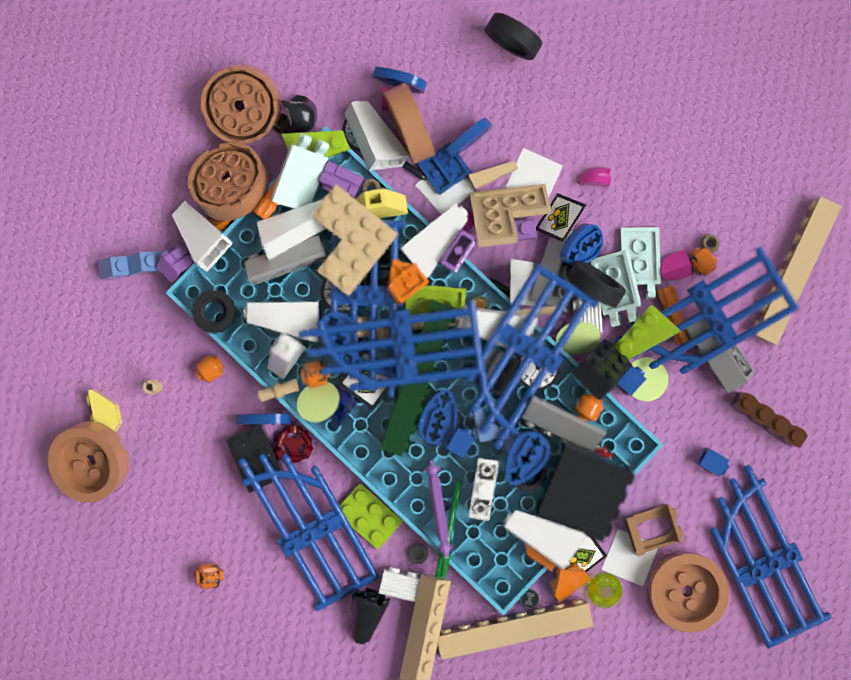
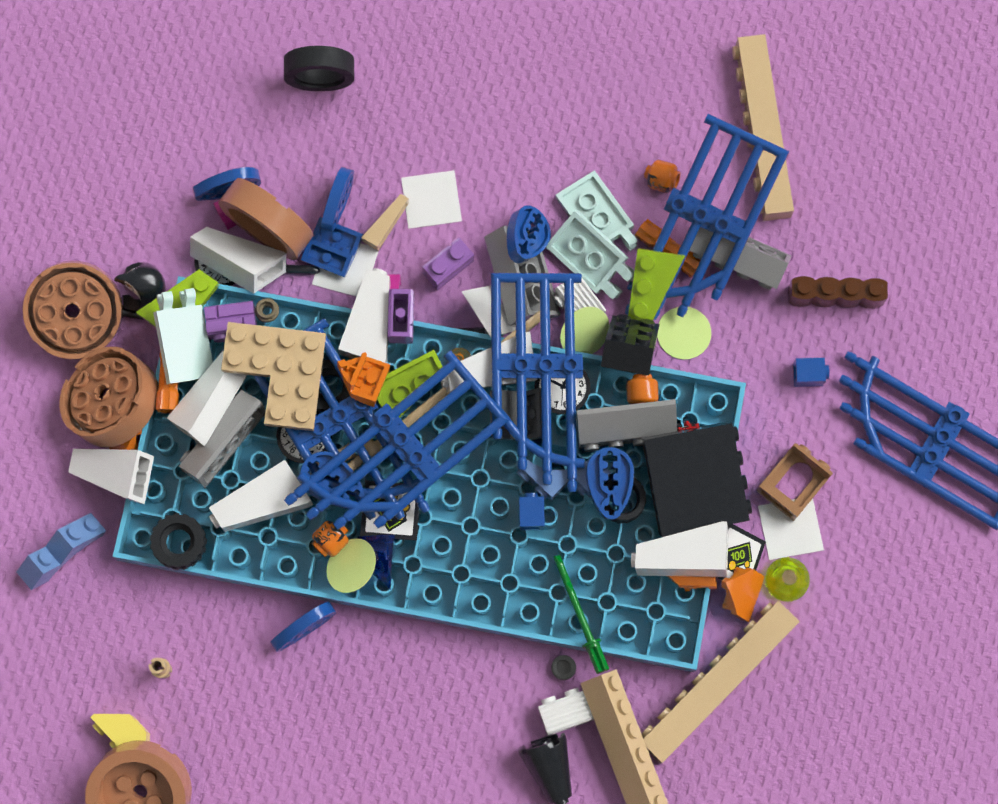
camera: 35 degrees left, 10 degrees down
(176, 262) = (104, 516): medium lavender brick -> none
(209, 368) = (210, 611): orange head -> none
(250, 446) = (322, 675): black brick -> none
(278, 390) = (301, 582): tan pin -> none
(284, 355) = (284, 534): white slope -> none
(294, 444) = (353, 635): dark red piece -> none
(309, 533) = (434, 712): blue piece -> none
(370, 516) = (484, 661): lime plate -> none
(383, 203) = (291, 313): light yellow slope -> none
(411, 395) = (446, 493): dark green brick -> none
(438, 508) = (553, 597): medium lavender wheel -> none
(448, 424) = (506, 503): blue piece -> none
(483, 489) = (587, 544): white slope -> none
(497, 208) = (415, 253): tan plate -> none
(530, 599) = (713, 638): tile -> none
(562, 217) = (486, 220): sticker -> none
(596, 176) = (496, 160): dark pink brick -> none
(596, 284) = (567, 261): black tyre -> none
(632, 380) = (668, 341): blue brick -> none
(676, 266) = (639, 198): dark pink brick -> none
(696, 610) = (892, 505): nougat brick -> none
(715, 242) = (657, 148): dark tan plate -> none

